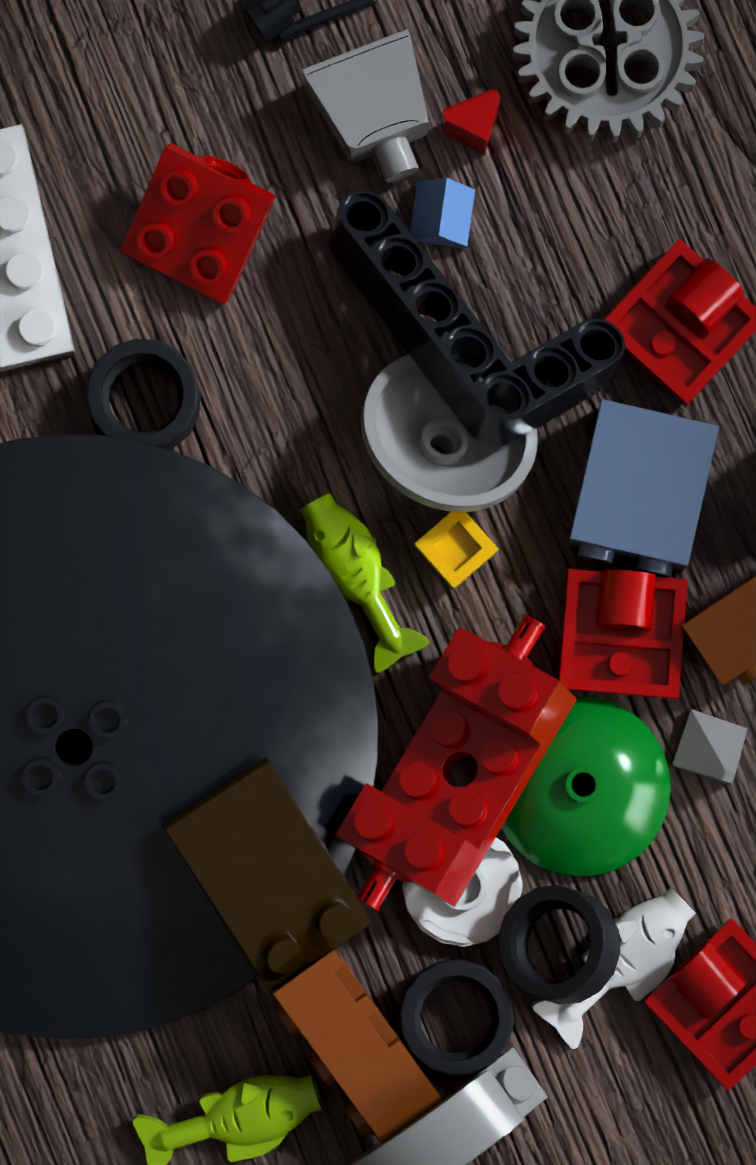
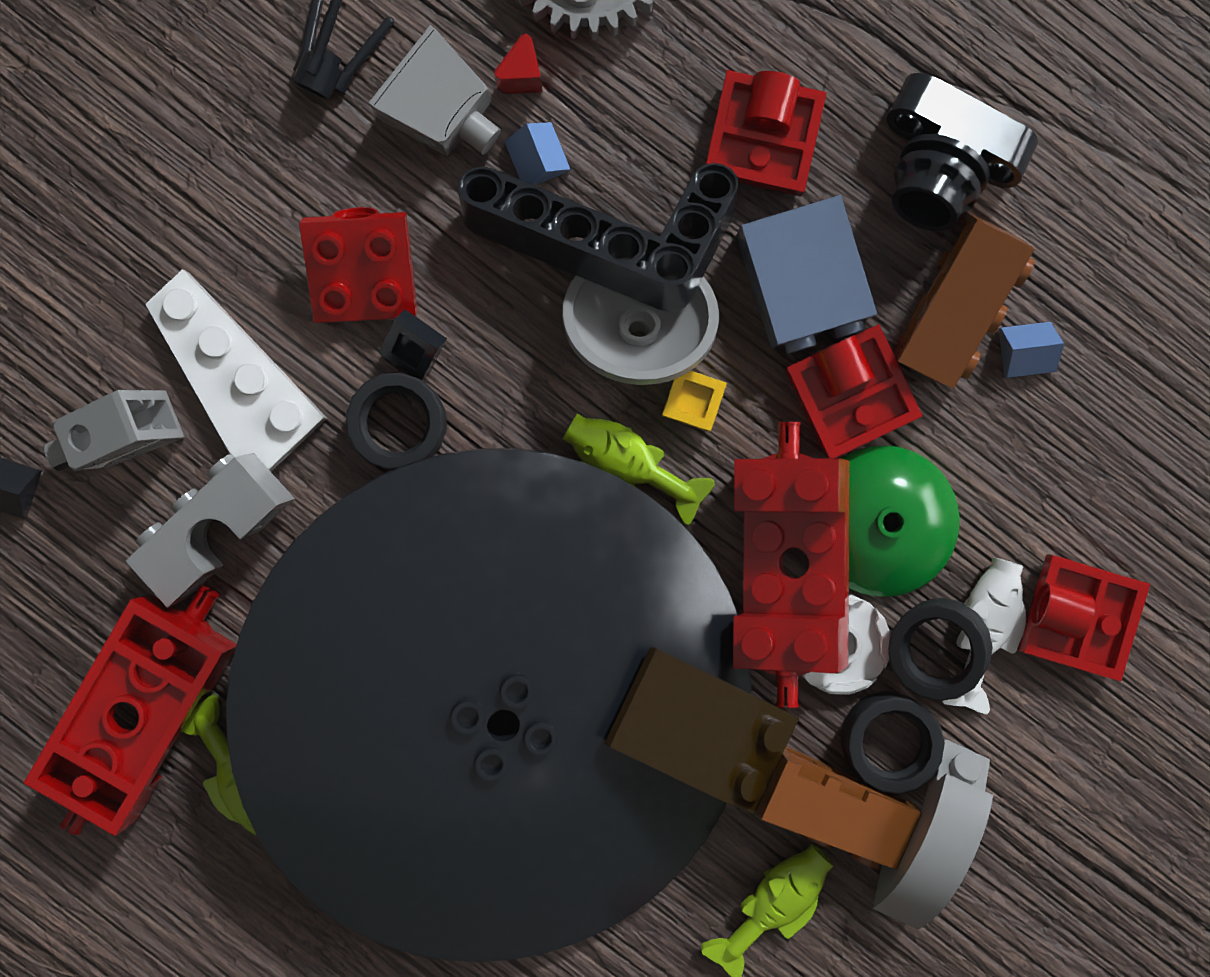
camera: 30 degrees left, 5 degrees up
(205, 330) = (412, 345): none -> black plate
(710, 747) = (963, 438): light grey slope -> none

